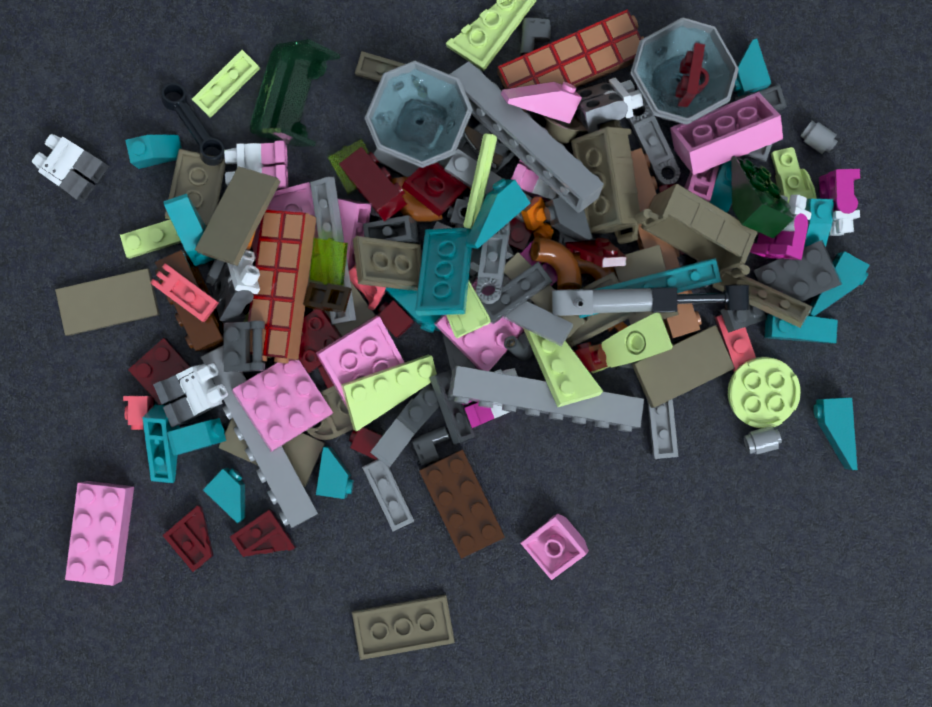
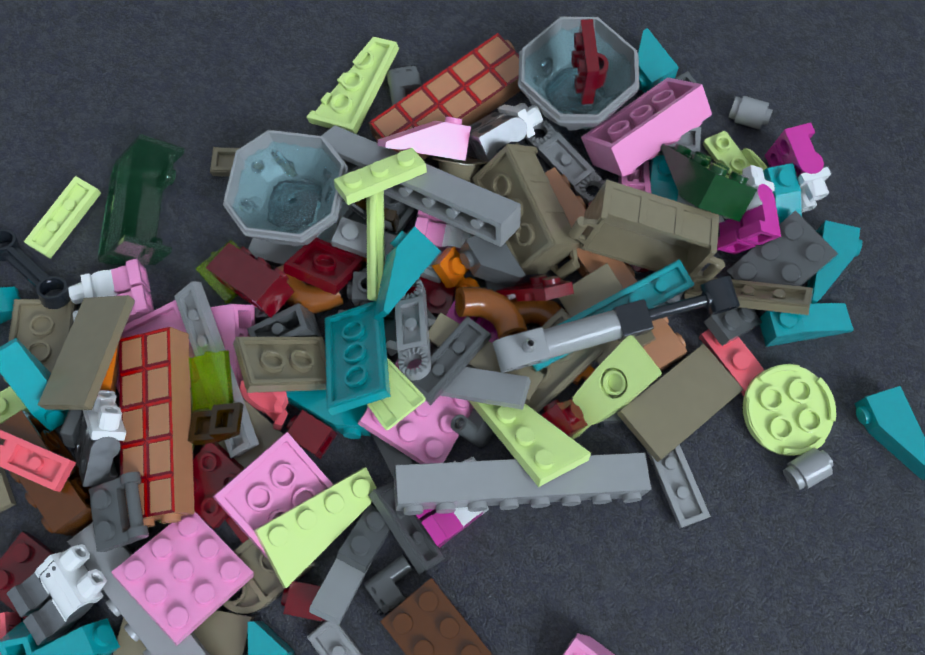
camera: 10 degrees left, 15 degrees down
(497, 127) = (380, 176): none -> yellowish green plate

